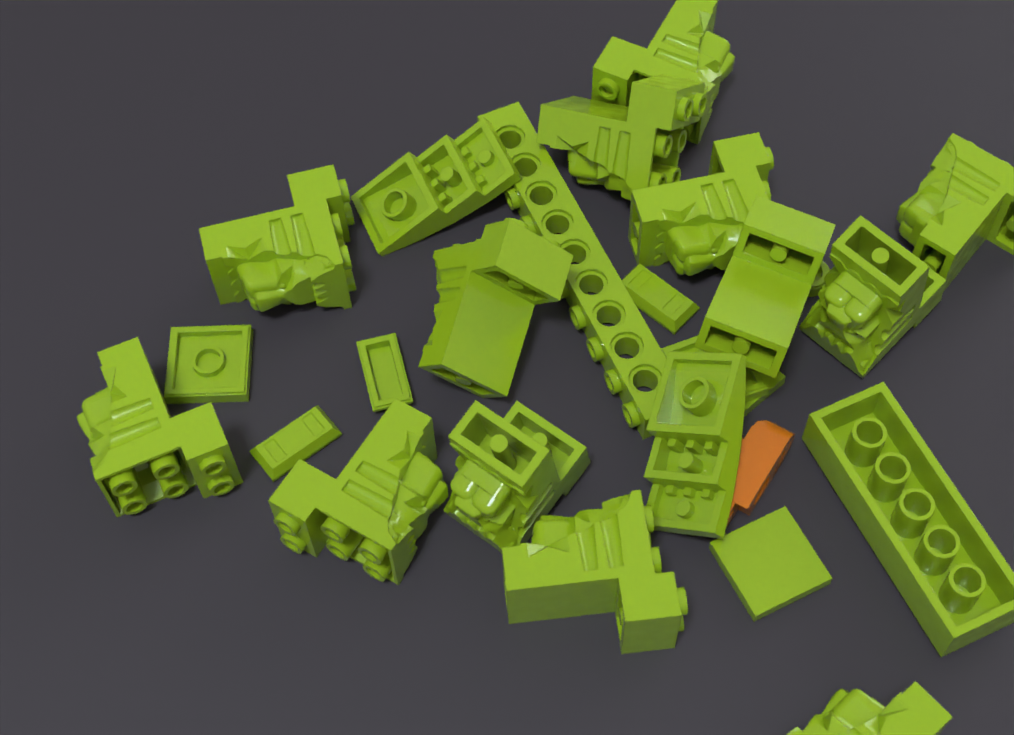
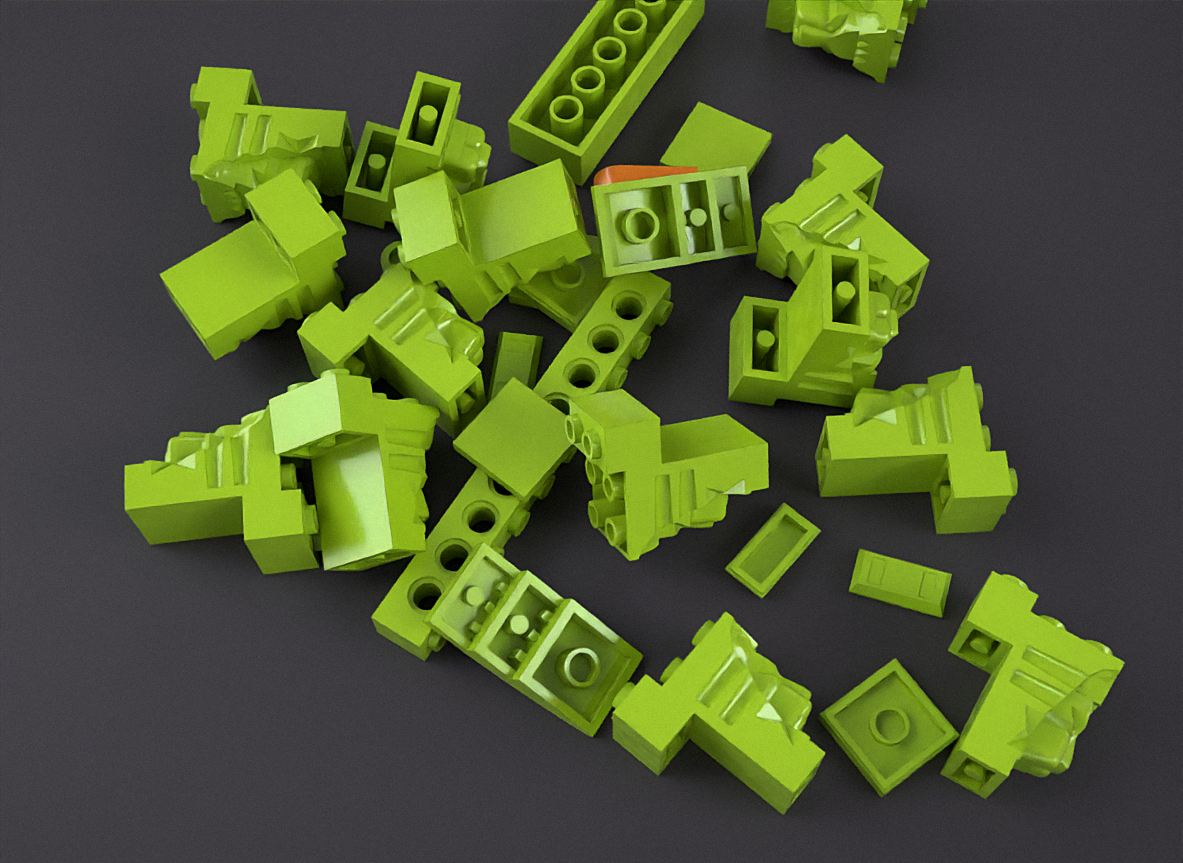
camera: 125 degrees left, 5 degrees up
(588, 233) = (516, 440): none -> lime tile
(838, 148) = (264, 269): none -> lime brick

